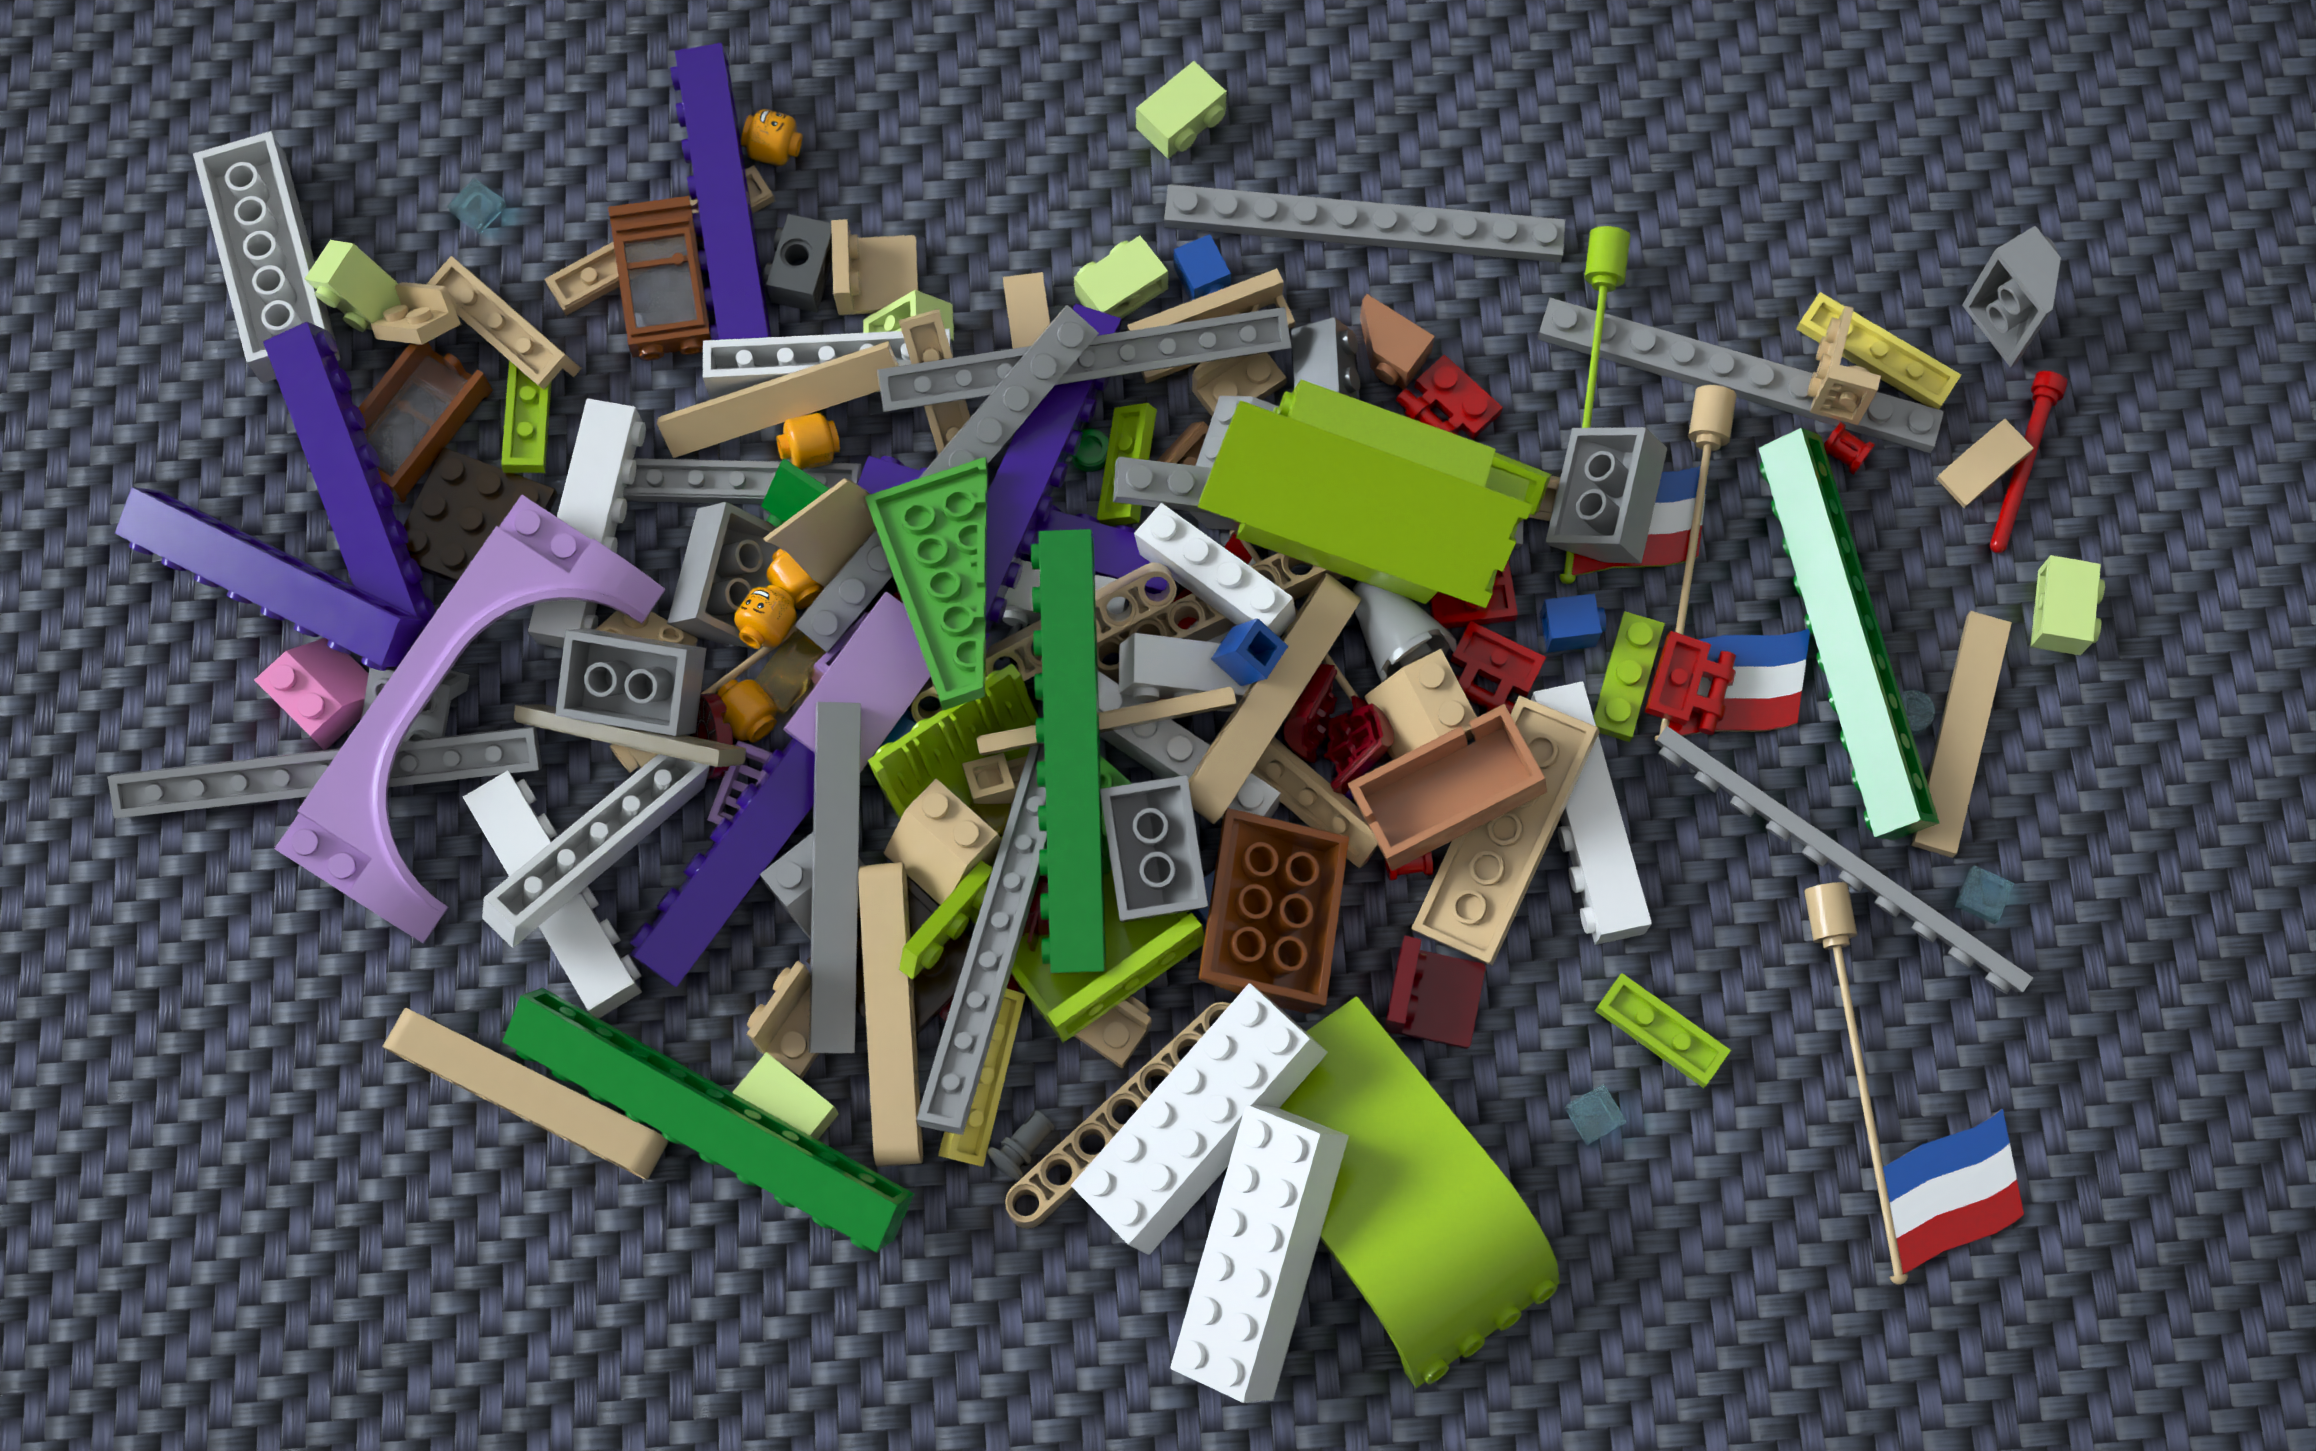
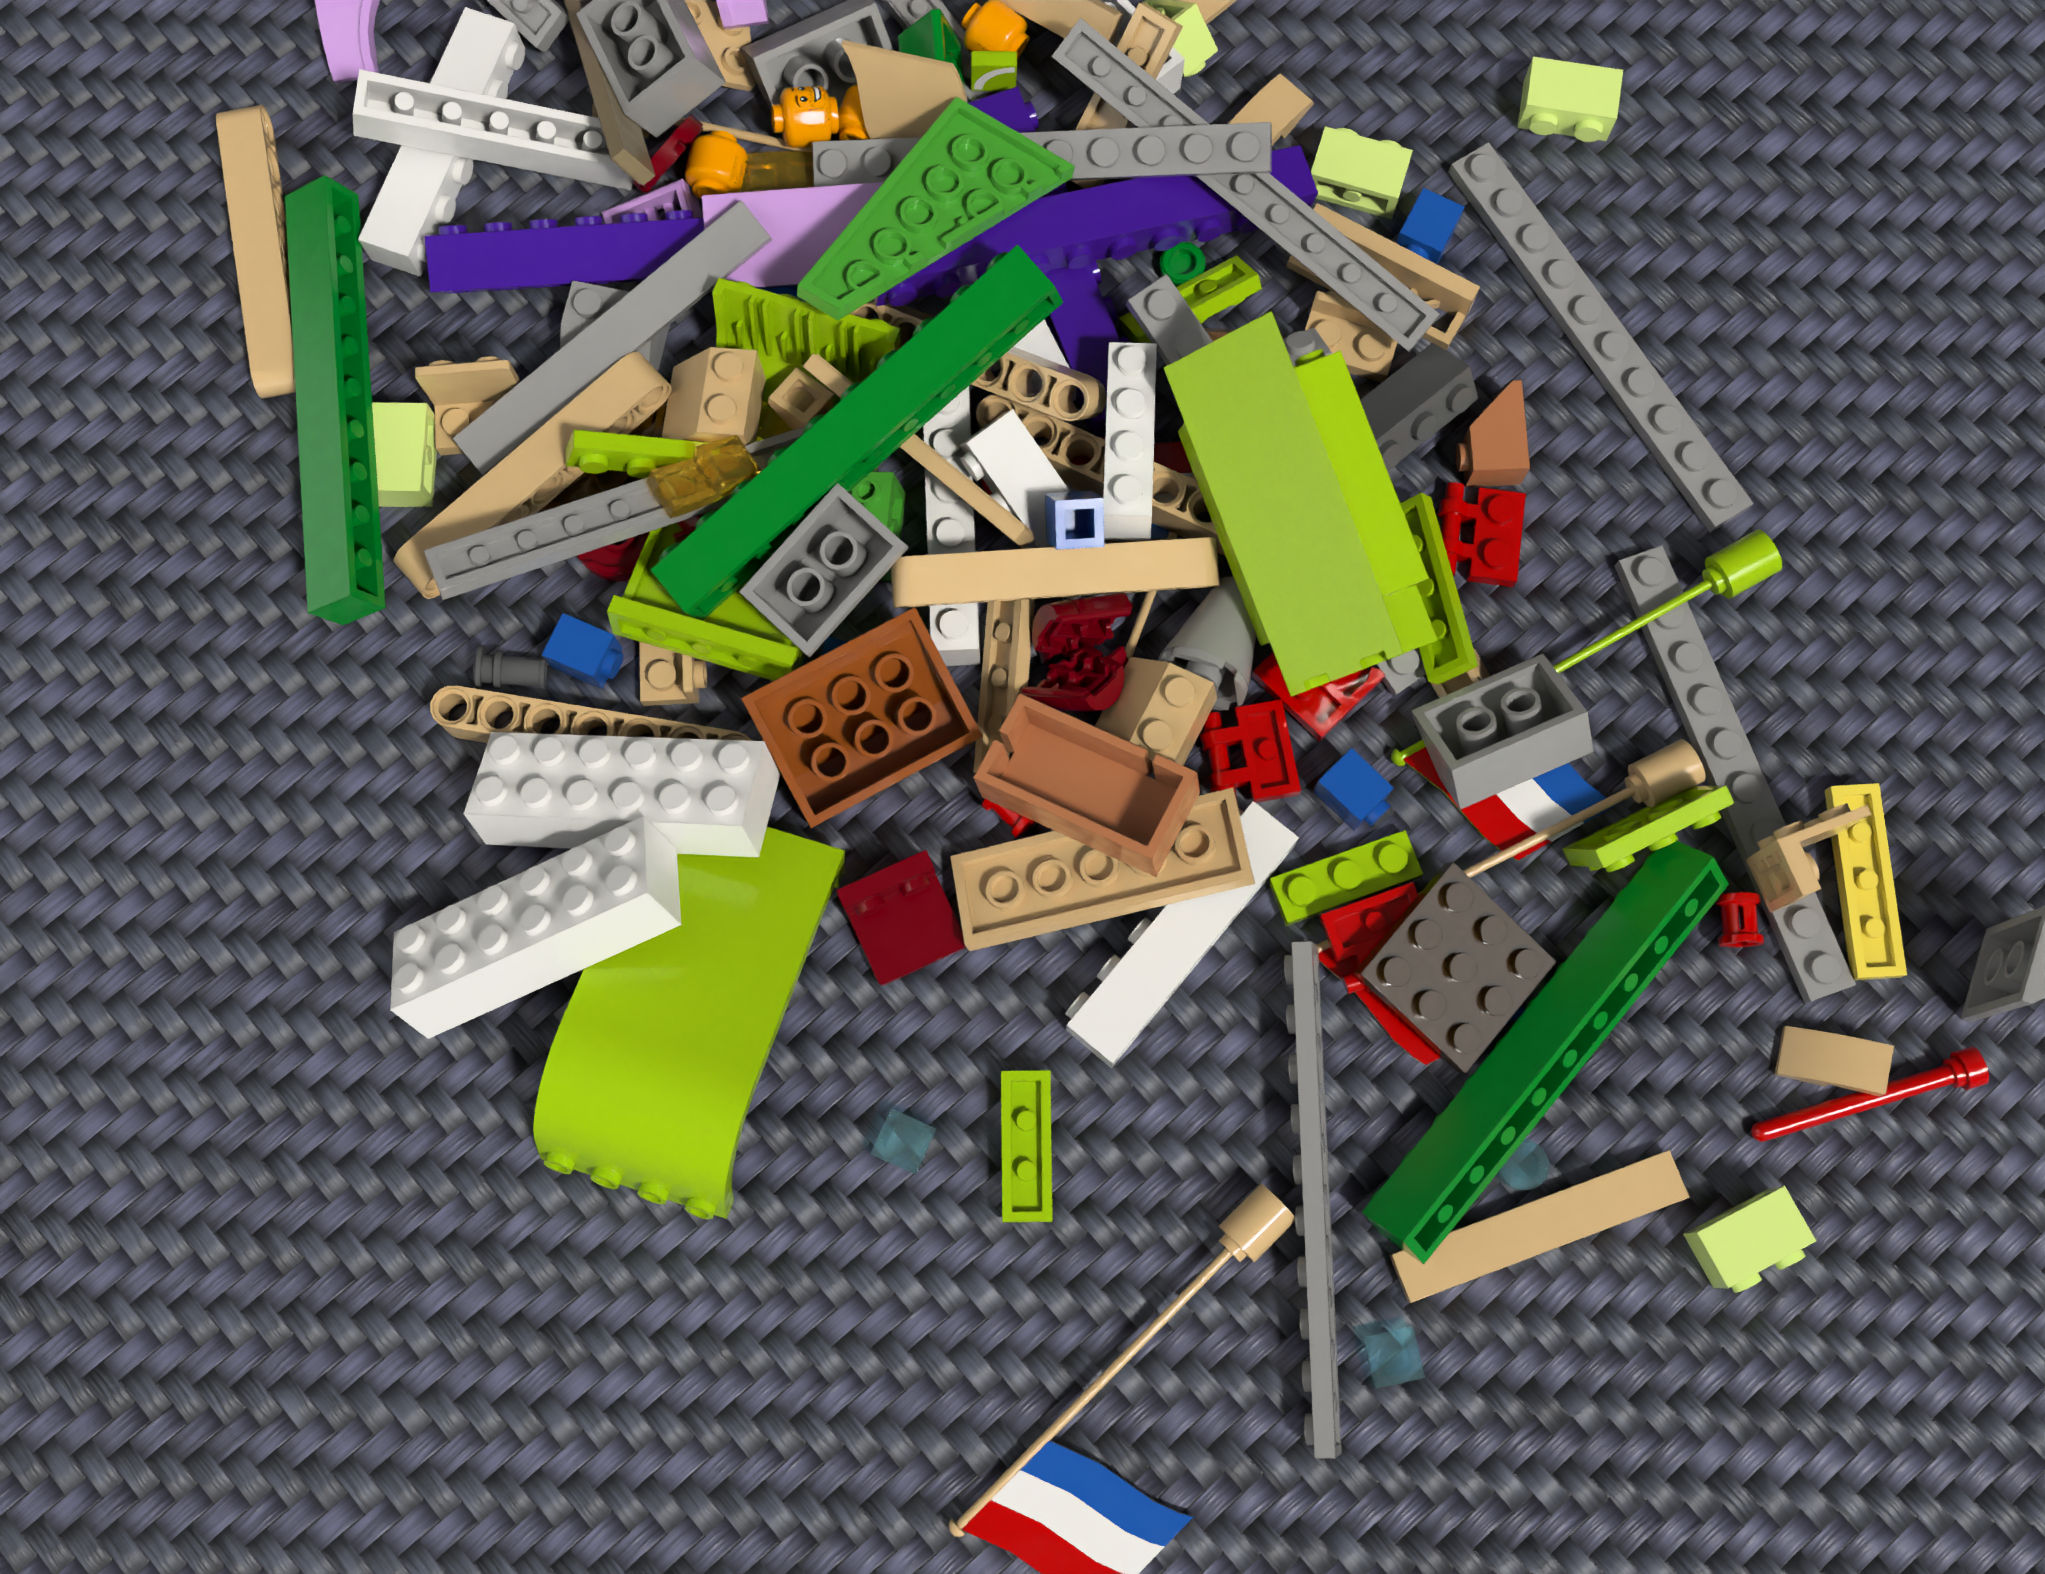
camera: 55 degrees right, 5 degrees up
(840, 462) = (993, 70): none -> lime tile
(974, 1142) = (536, 595): light yellow plate -> none
(1010, 882) = (704, 478): none -> clear yellow slope
(1053, 1077) = (583, 651): none -> blue brick
(1745, 457) = (1649, 827): none -> lime plate
(1749, 649) = (1455, 967): none -> plate

